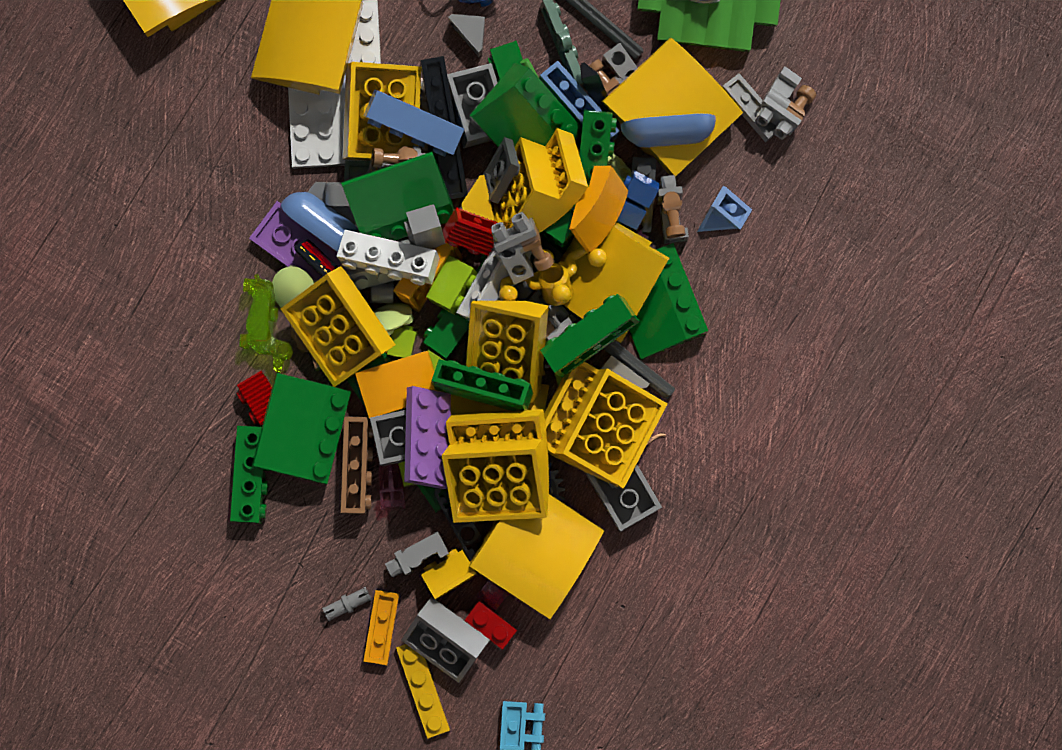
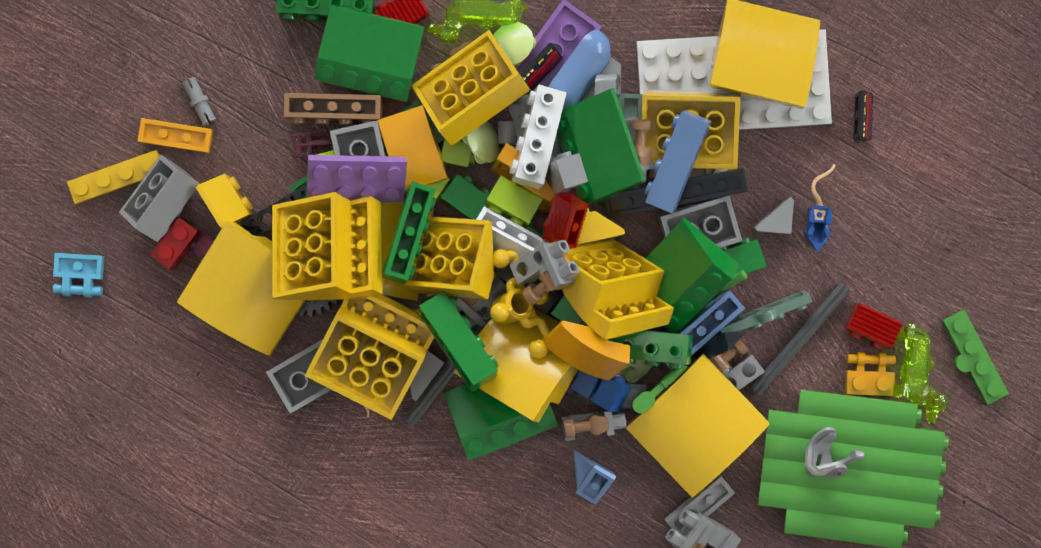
camera: 85 degrees right, 5 degrees up
(416, 554) = (239, 164): light grey hips -> none
(501, 170) = (629, 251): dark grey plate -> none
(646, 154) = (646, 399): none -> bright green piece
(669, 130) = (670, 422): medium blue brick -> none

